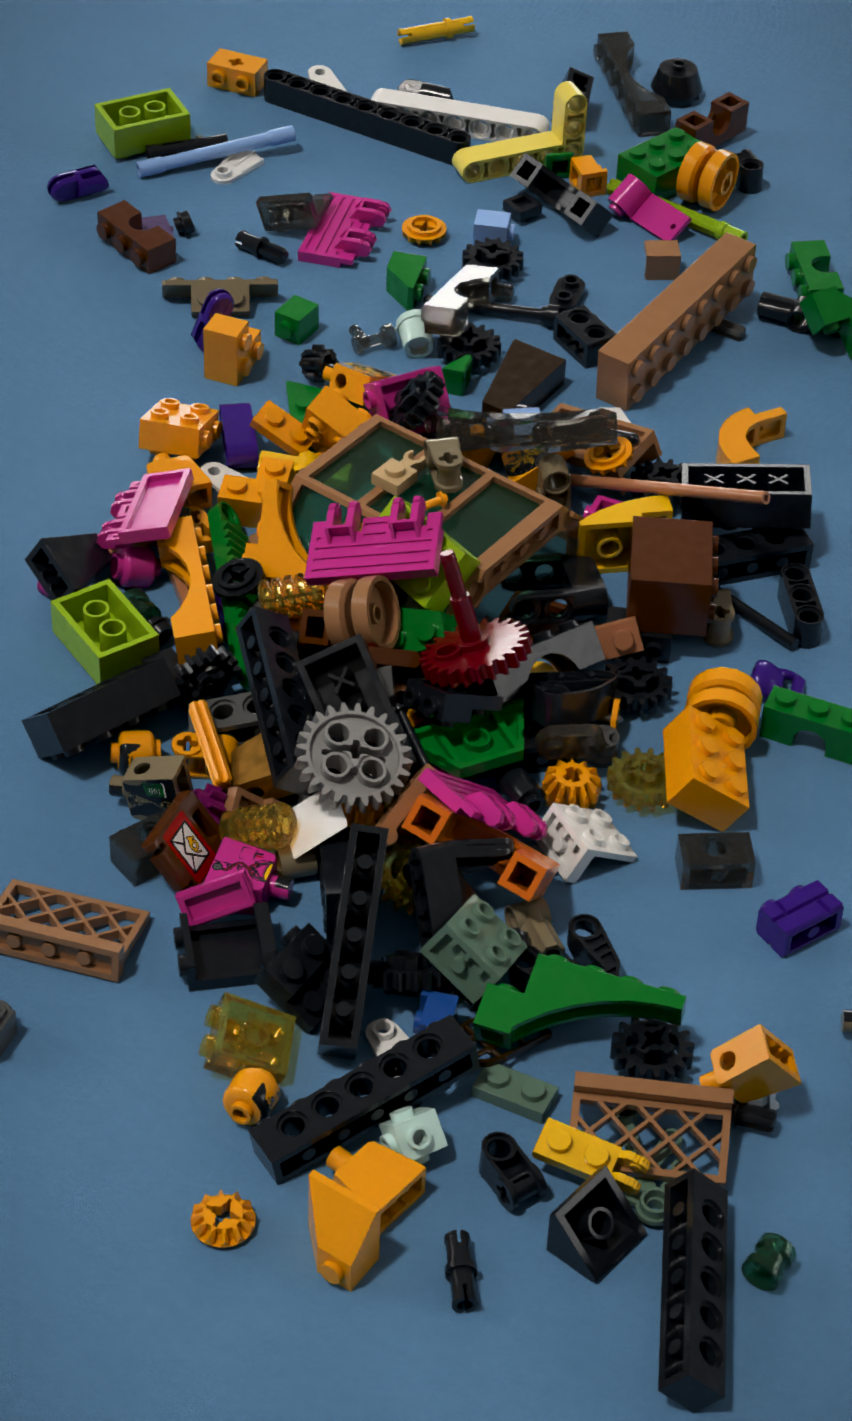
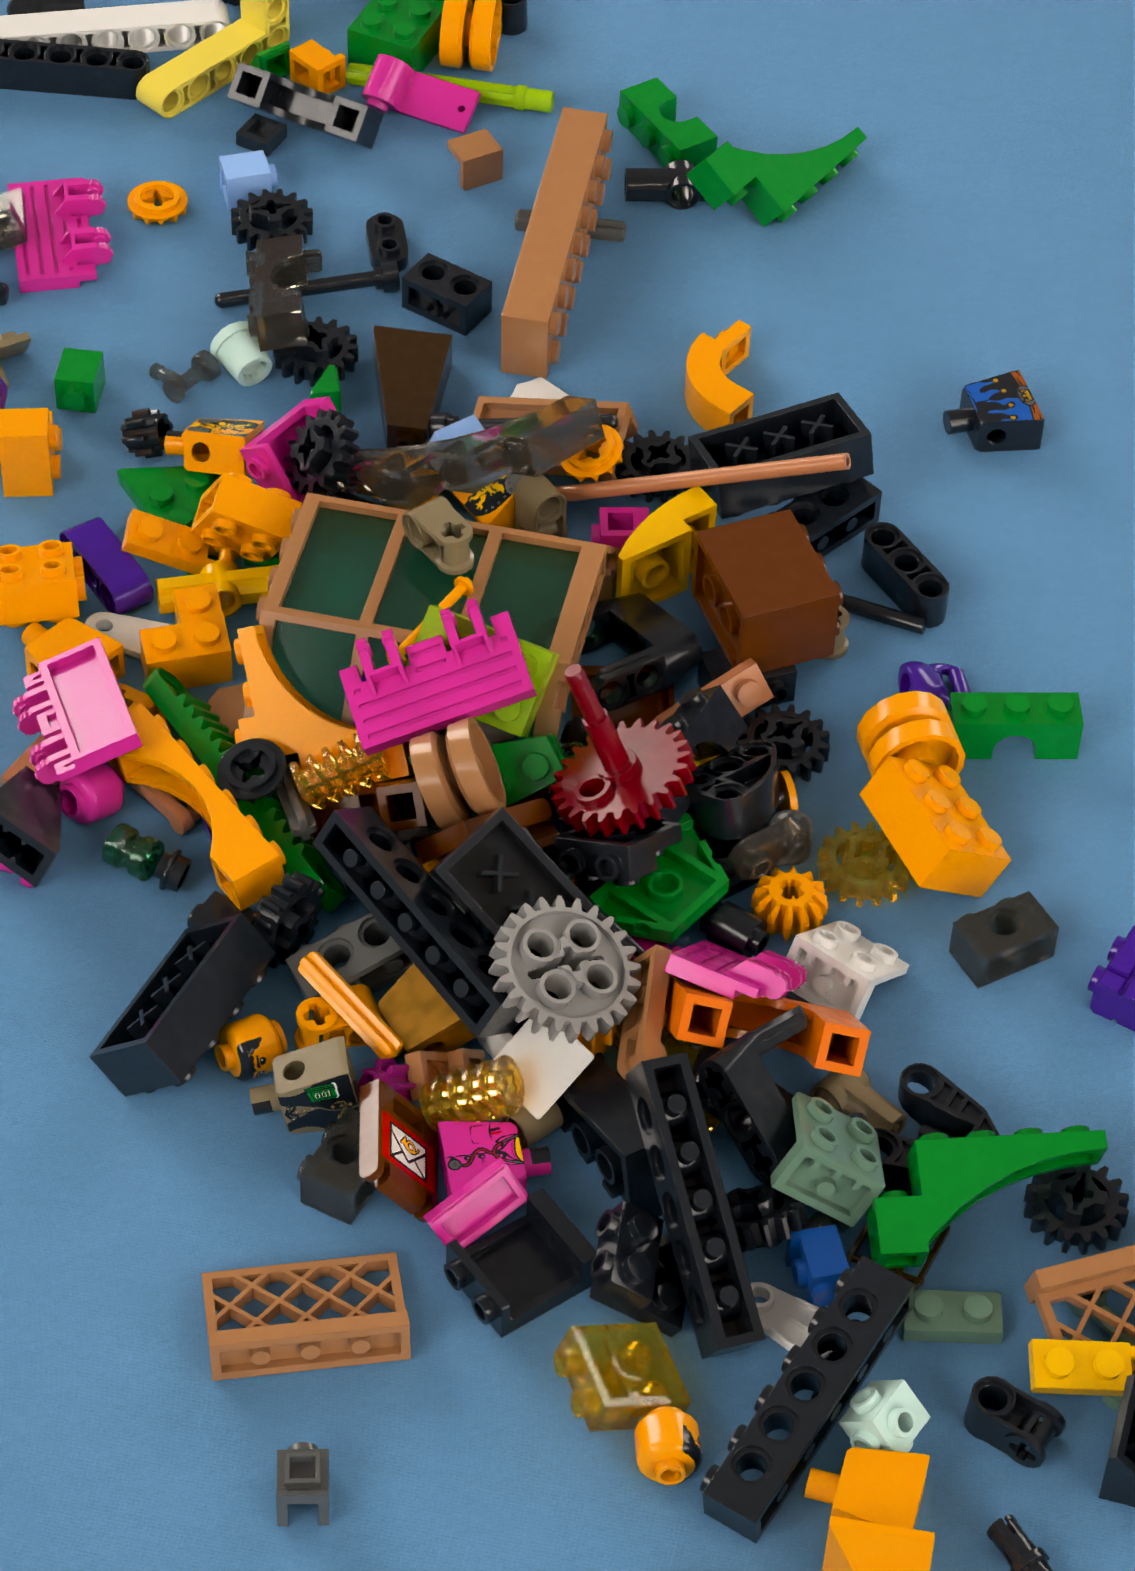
camera: 25 degrees left, 5 degrees up
(103, 630) = (115, 898): lime brick -> none
(397, 475) = (389, 570): tan plate -> none
(406, 278) = (181, 279): green slope -> none

